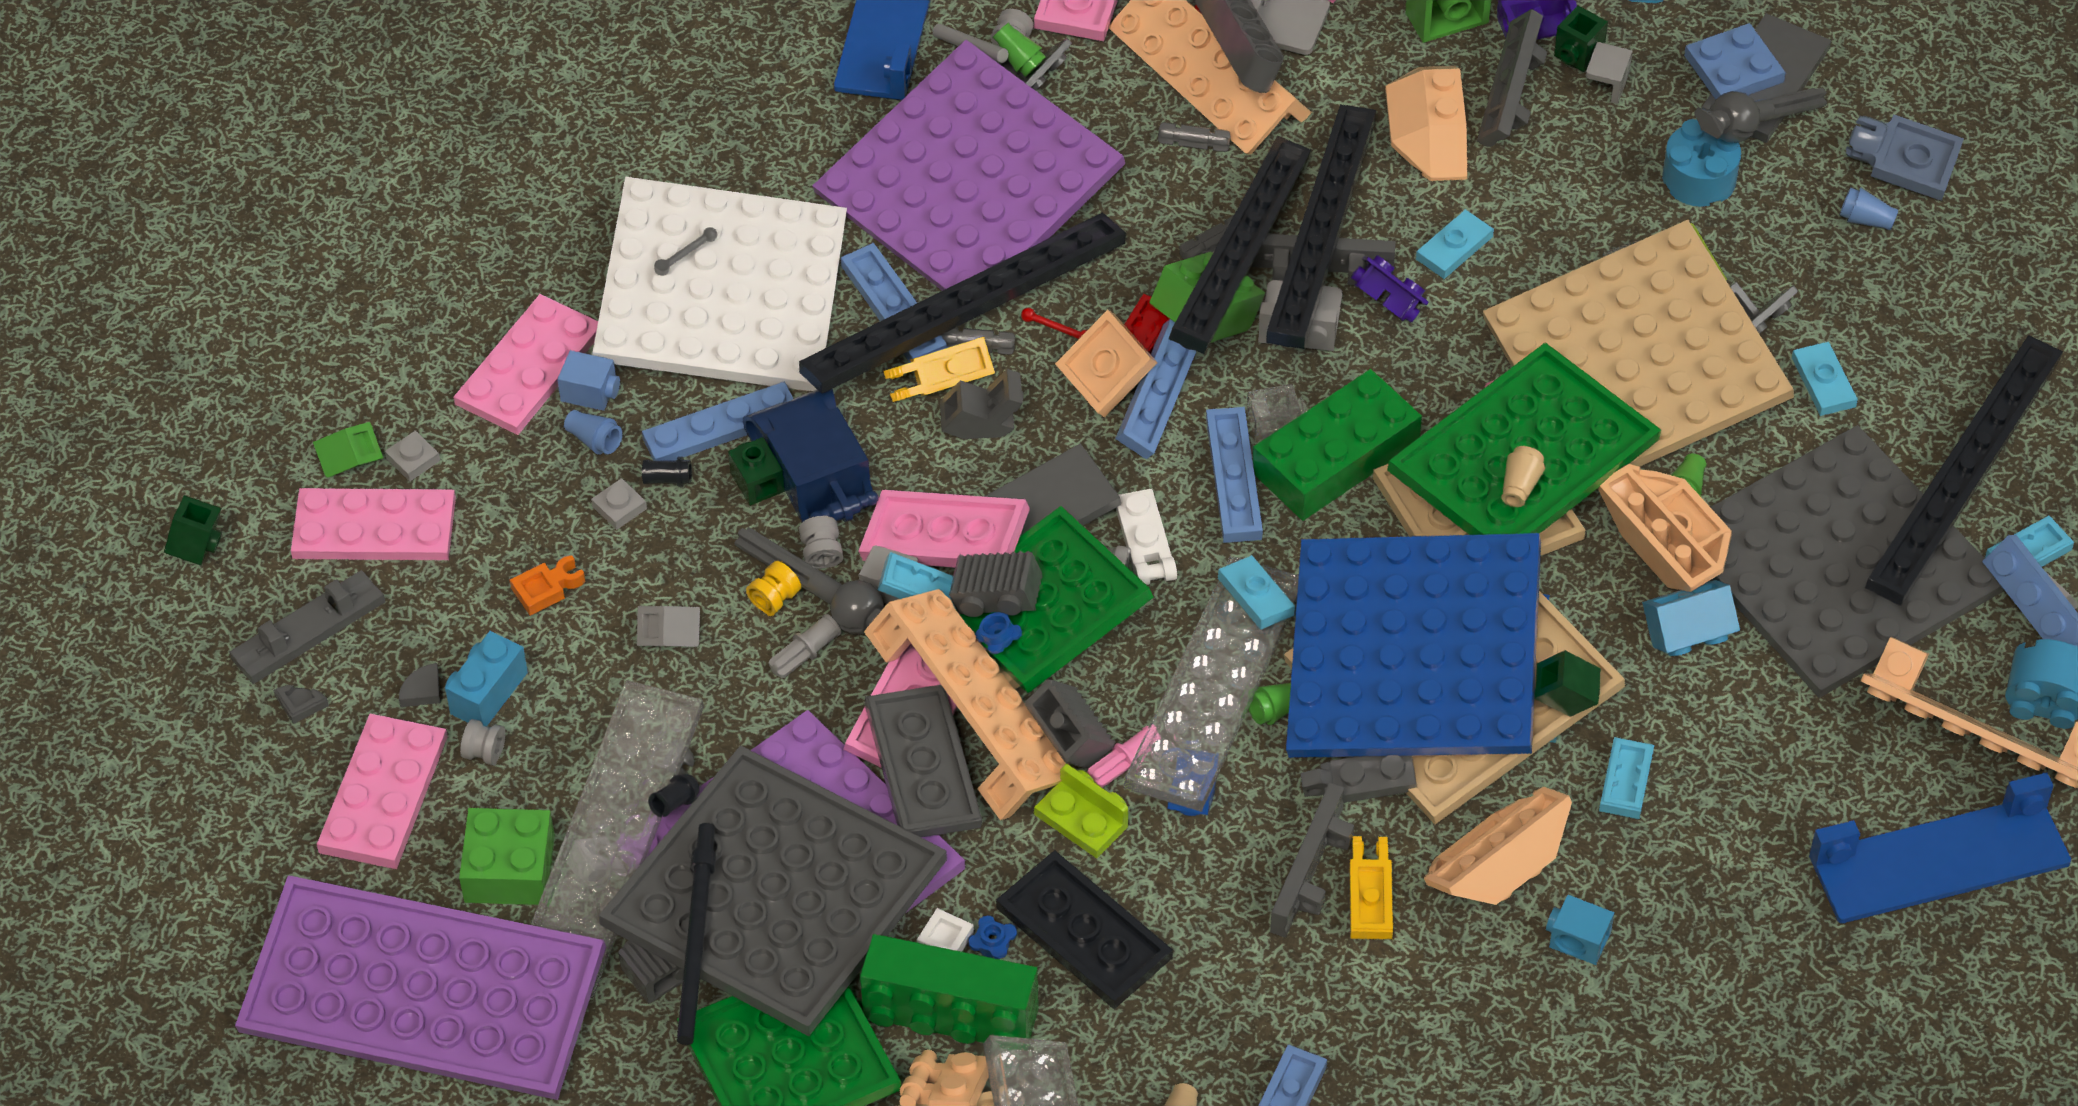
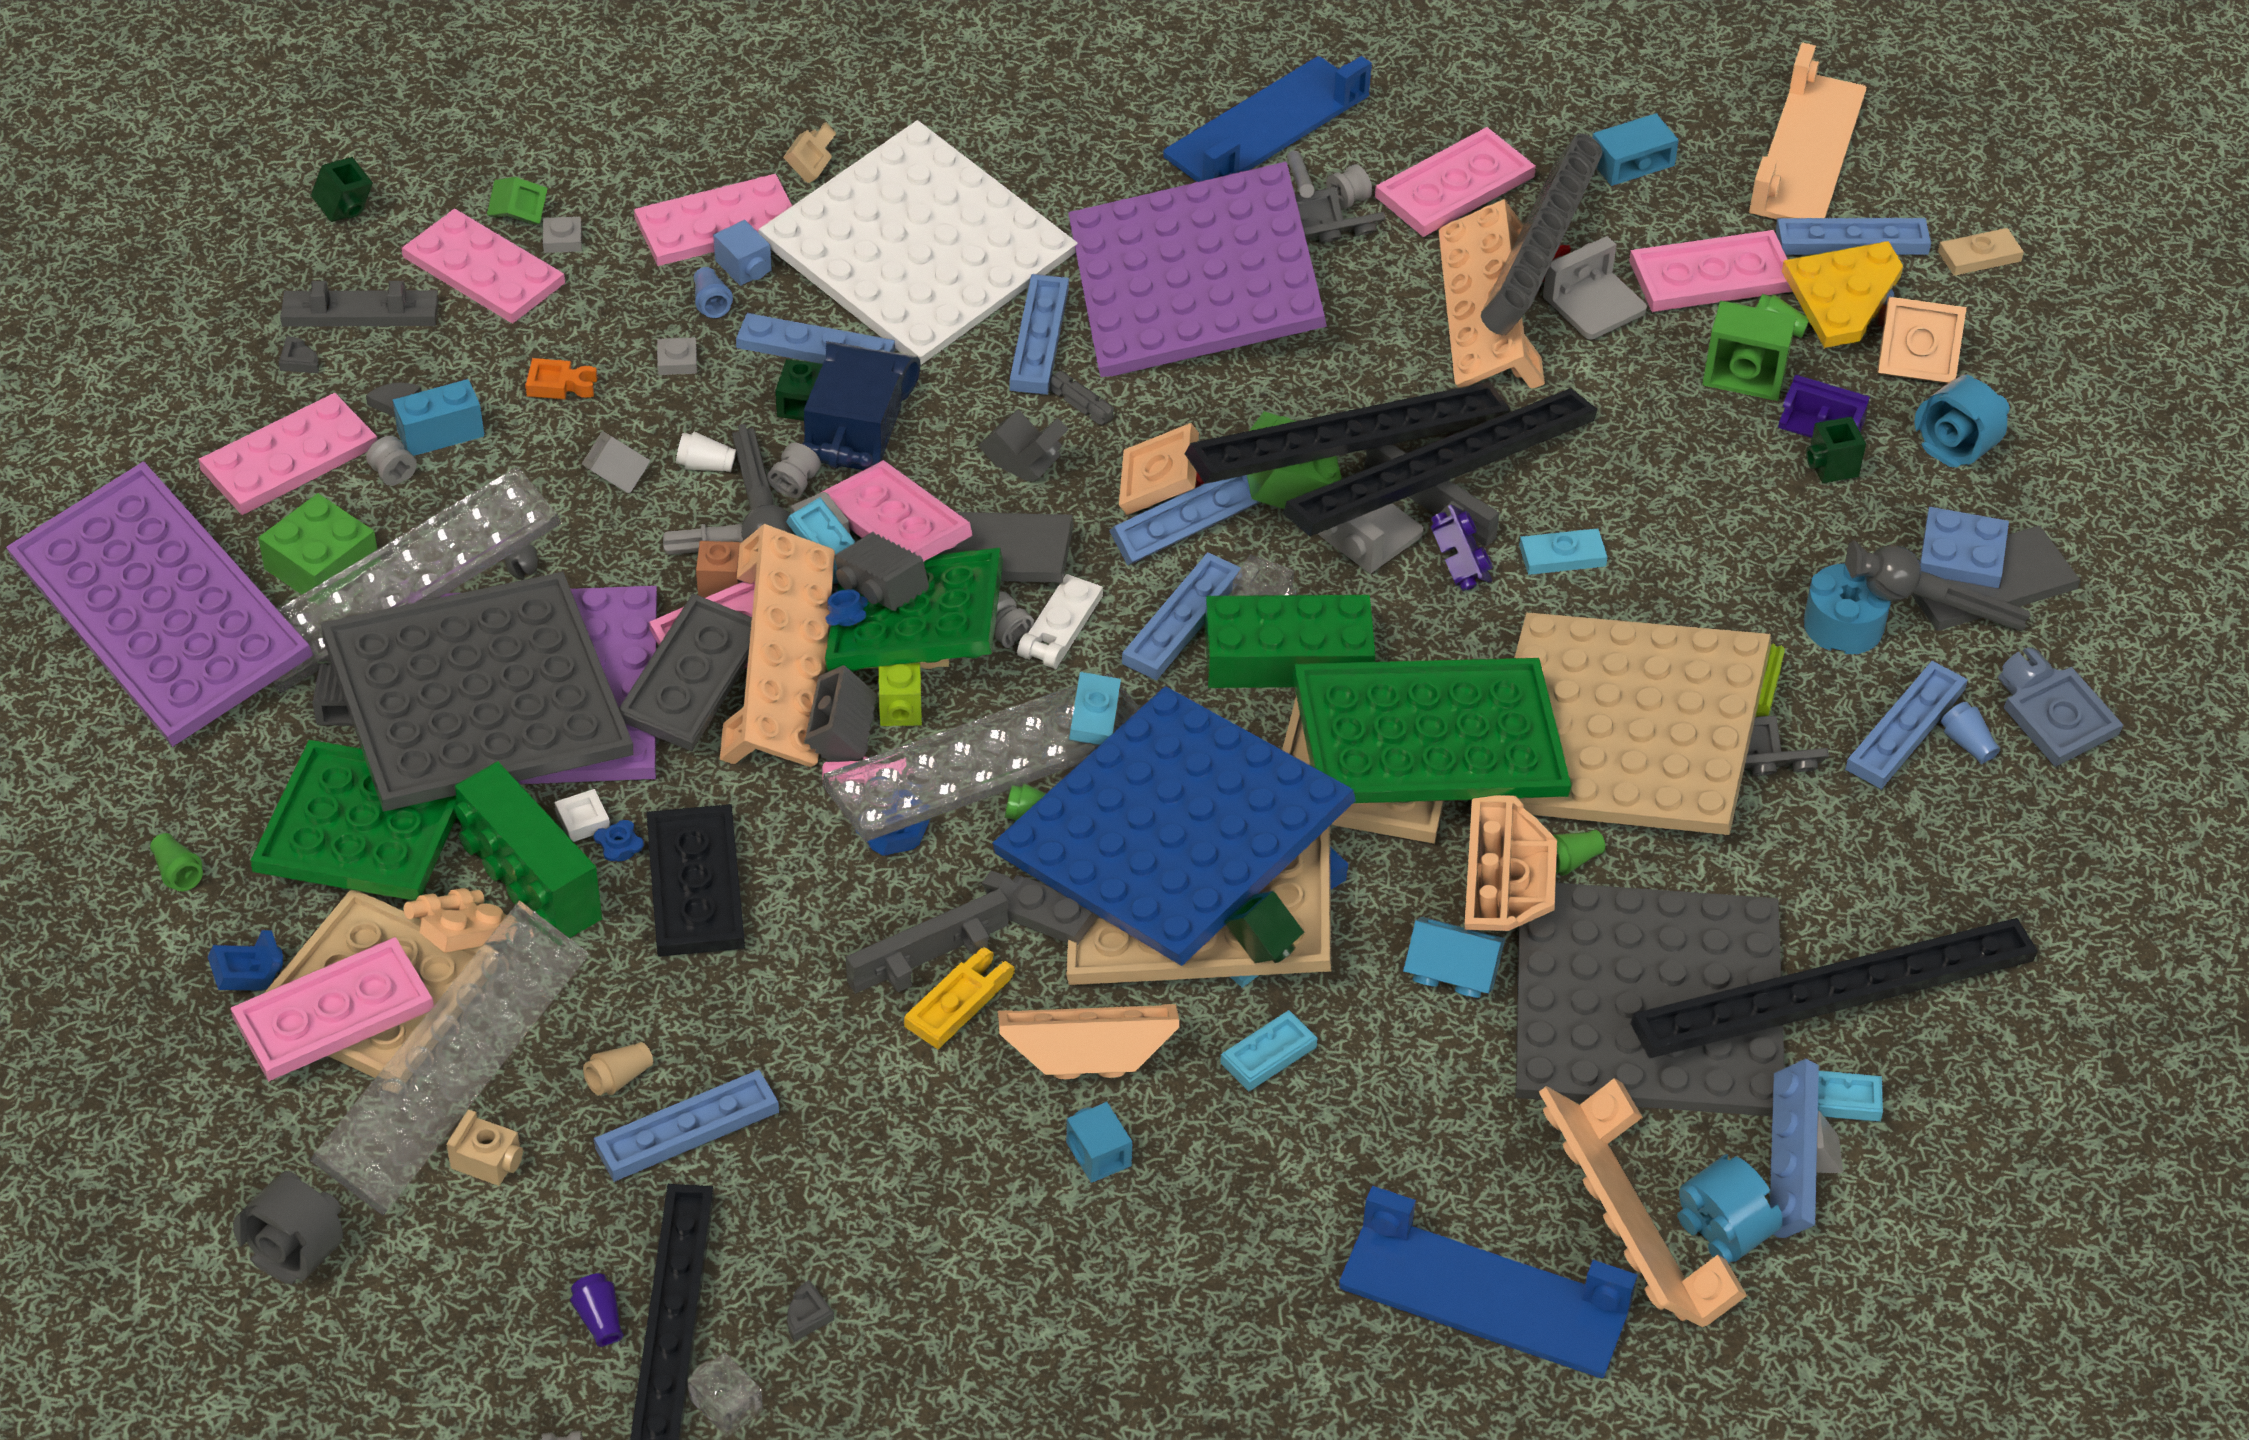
camera: 35 degrees right, 5 degrees down
(550, 259) = (809, 154): none -> tan plate
(662, 266) = (874, 197): dark grey hinge -> none
(667, 471) = (741, 356): black pin -> none
(680, 791) = (467, 572): black pin -> none
(702, 865) = (430, 633): black bar -> none
(731, 574) = (703, 453): none -> white cone
(773, 588) = (723, 482): yellow wheel -> none
(851, 665) = (716, 566): none -> nougat brick
(944, 368) = (1035, 400): yellow hinge -> none
(961, 303) = (1088, 356): black plate -> none
(1022, 52) = (1329, 197): bright green cone -> none
(1029, 315) = (1144, 403): red hinge -> none
(1084, 811) = (788, 794): lime bracket -> none
(1095, 675) = (900, 695): none -> lime brick
(1194, 136) = (1422, 347): dark grey axle -> none
(1429, 121) = (1638, 444): light nougat wedge -> none
(1517, 56) = (1713, 468): dark grey hinge -> none
(1522, 473) = (1393, 739): tan cone -> none
(1611, 66) = (1844, 488): light grey panel -> none
(1819, 231) = (1906, 724): none -> medium blue plate
(1824, 378) = (1789, 845): medium azure plate -> none

